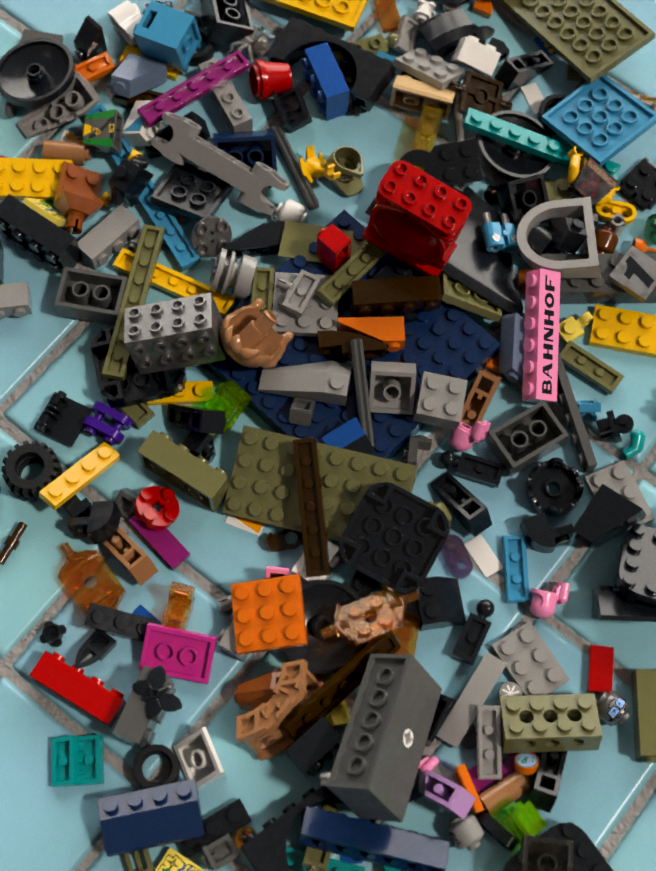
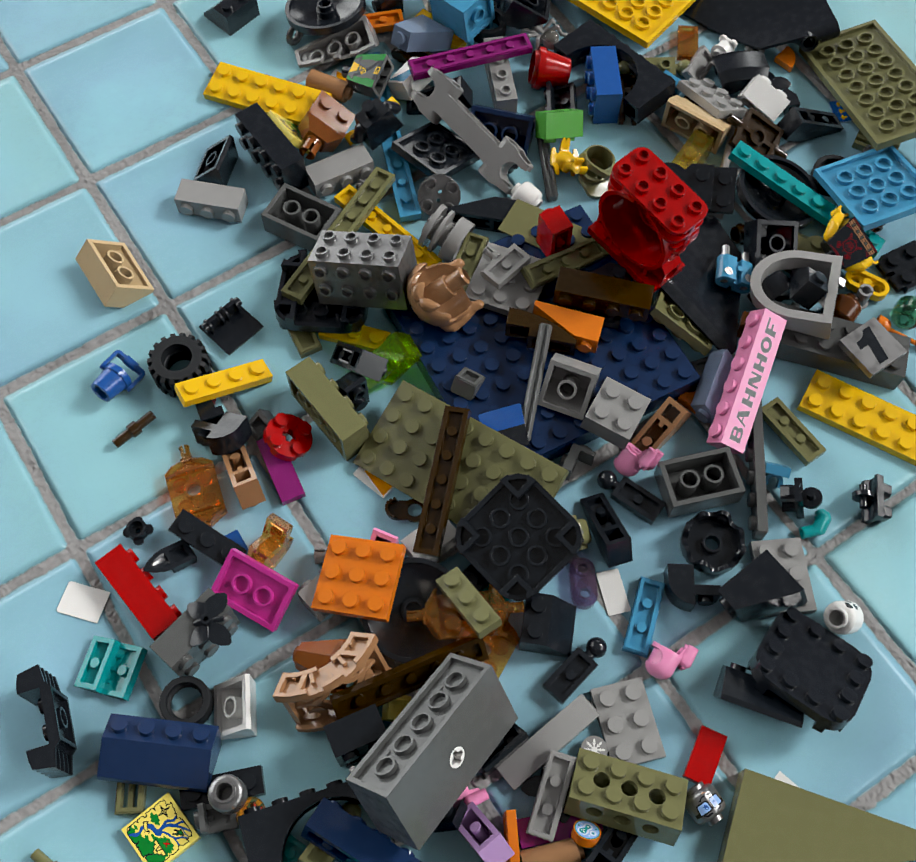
camera: 20 degrees right, 5 degrees down
(24, 798) = (43, 690): none -> black plate
(28, 712) = (83, 602): none -> white sticker
(111, 435) = (269, 353): dark purple brick -> none
(224, 831) = (227, 794): none -> flat silver head
(298, 134) = (558, 124): none -> bright green brick
(314, 381) = (494, 359): light grey wedge -> none
(370, 606) = (468, 602): none -> olive plate
(533, 96) = (811, 153): white sticker -> none
(572, 329) = (784, 387): light yellow plate -> none

